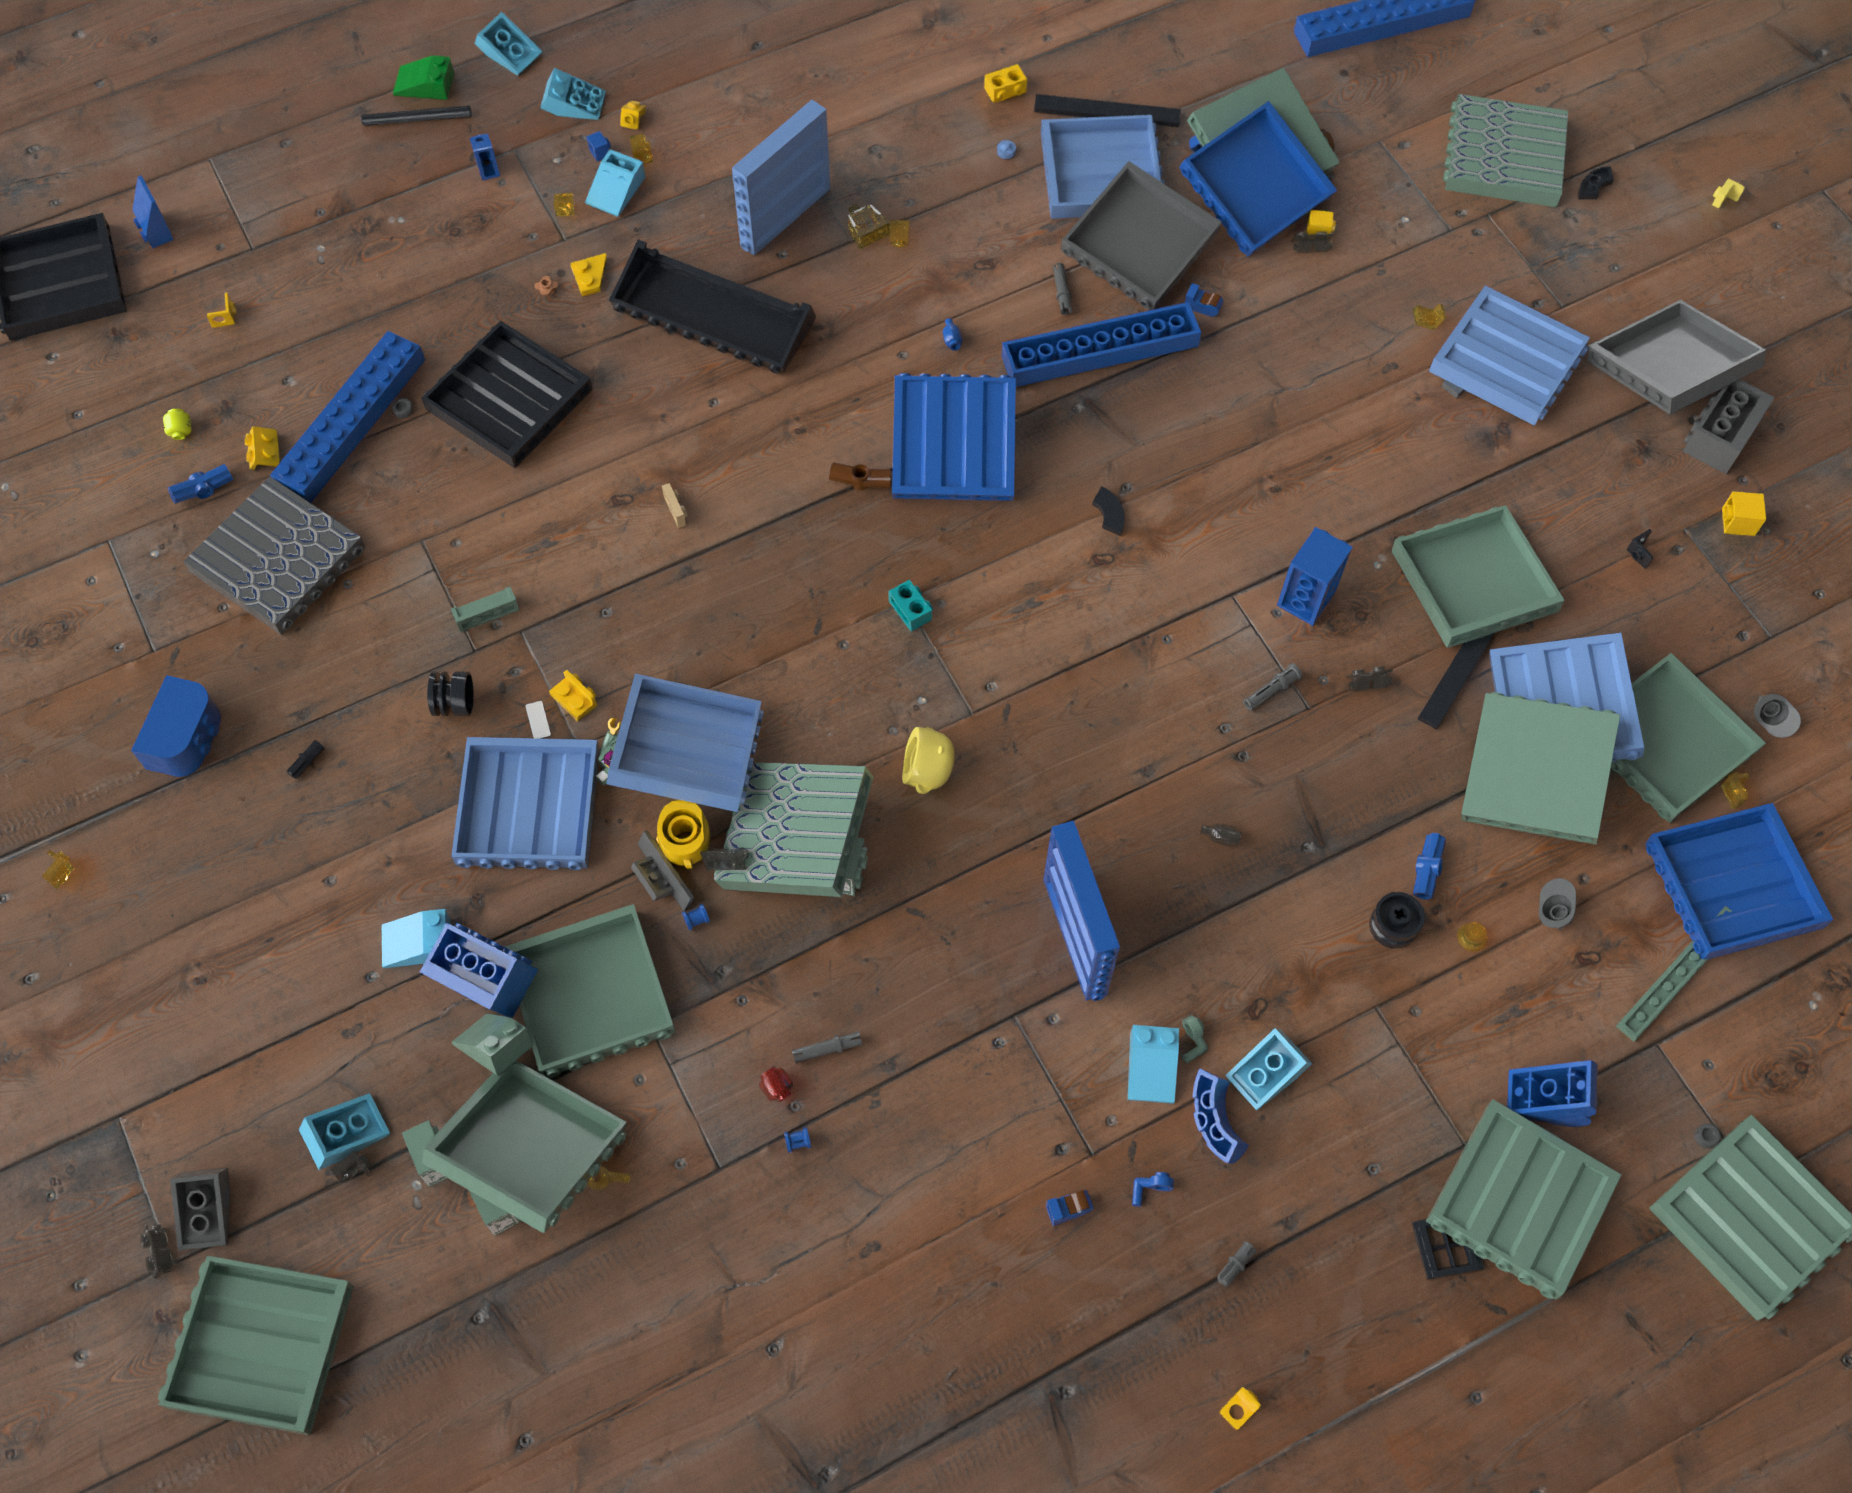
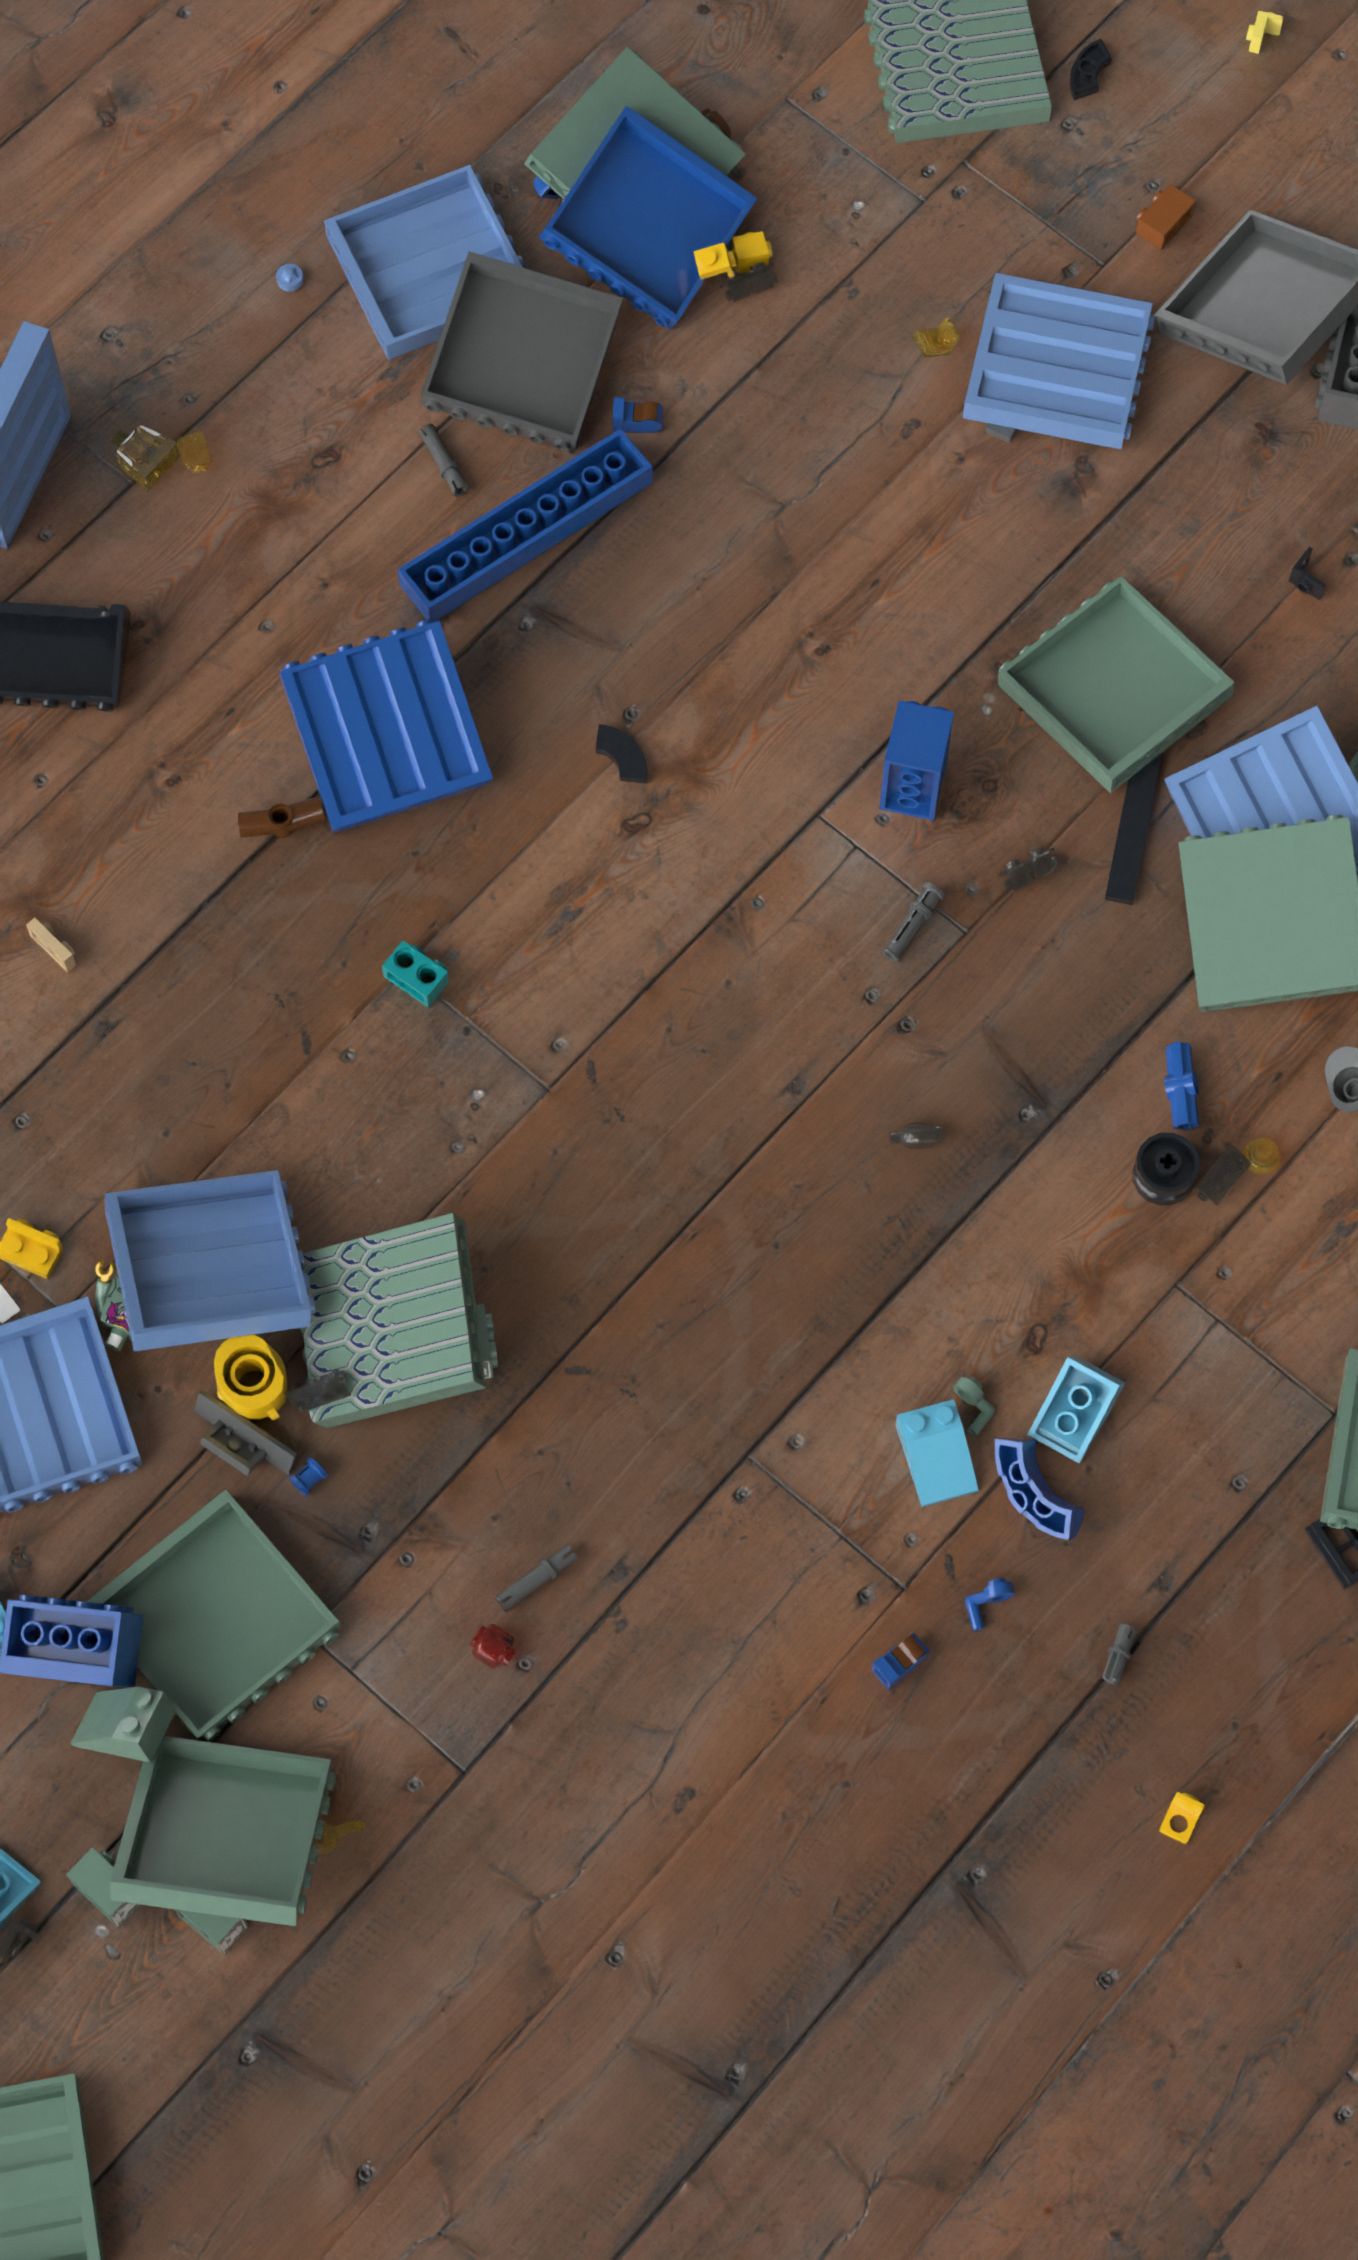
camera: 20 degrees left, 5 degrees up
(797, 1139) = (545, 1703): blue bush -> none
(927, 760) = (519, 1171): light yellow piece -> none
(952, 335) = (323, 577): blue plant -> none
(1005, 83) = (248, 174): yellow brick -> none
(1080, 911) = (787, 1301): blue panel -> none
(1096, 108) = (402, 173): black tile -> none
(1293, 219) = (715, 261): none -> yellow bracket
(1438, 939) = (1222, 1175): none -> clear smoke hinge
(1617, 287) = (1165, 216): none -> dark orange brick

